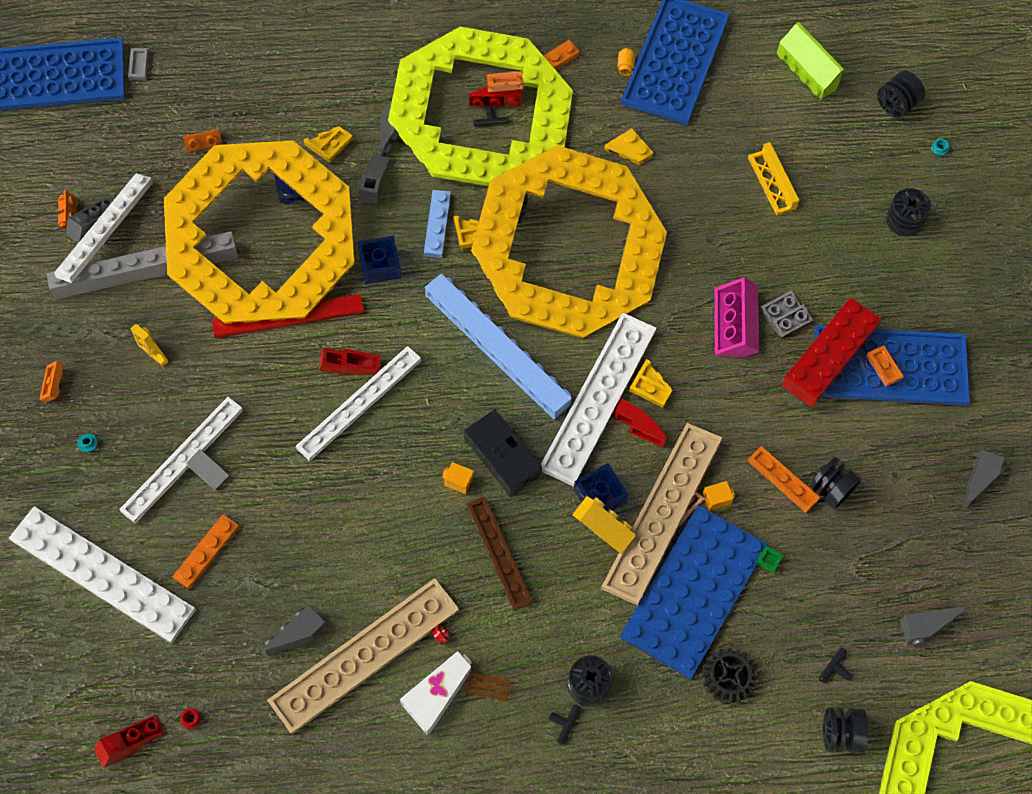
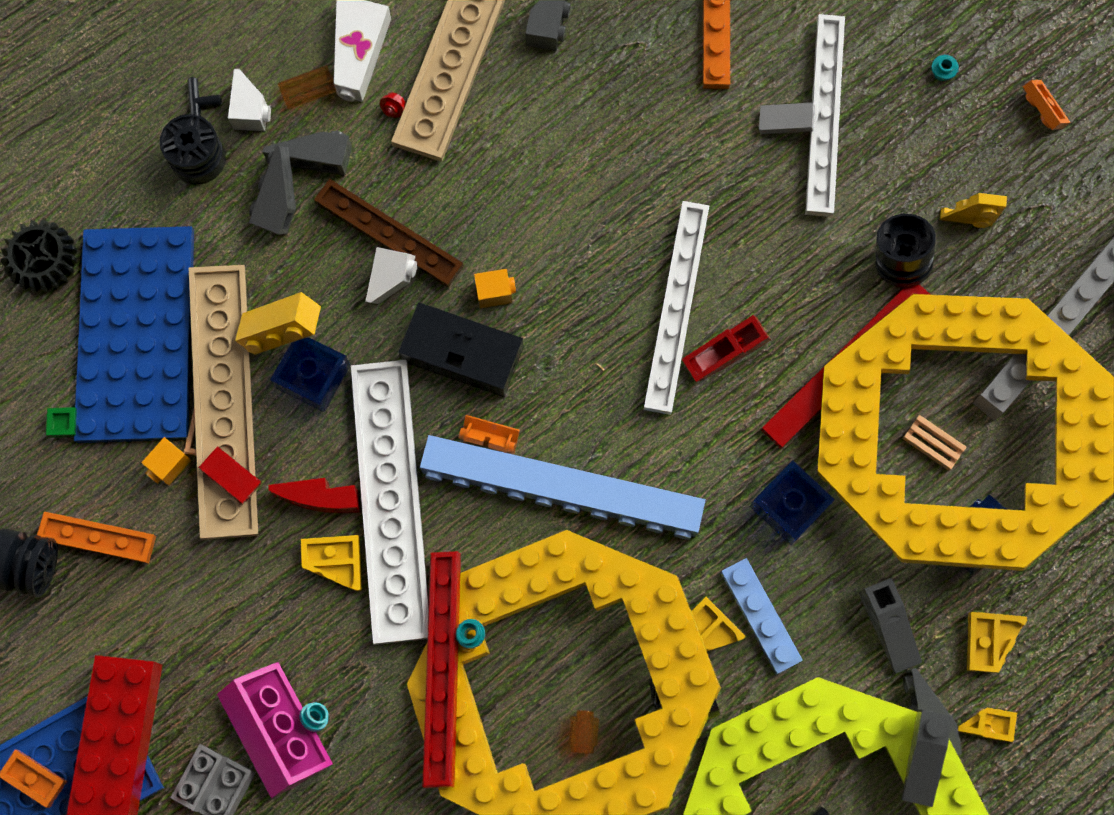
camera: 150 degrees right, 10 degrees up
(202, 336) = (905, 250): none -> black wheel
(272, 236) = (949, 440): none -> light nougat tile
(361, 111) = (991, 724): none -> yellow slope
(407, 103) = (926, 756): none -> dark grey slope
(510, 633) = (318, 152): none -> dark grey slope
(515, 520) = (389, 274): none -> white slope
(525, 402) = (489, 434): none -> orange hinge
(535, 694) = (247, 105): none -> white slope
(558, 611) = (276, 198): none -> dark grey slope
(571, 223) = (583, 732): none -> clear orange brick
(600, 289) = (464, 628): none -> teal plate
(625, 291) = (442, 671): none -> red tile
(684, 460) = (230, 475): none -> red tile
(707, 311) = (317, 711): none -> teal plate

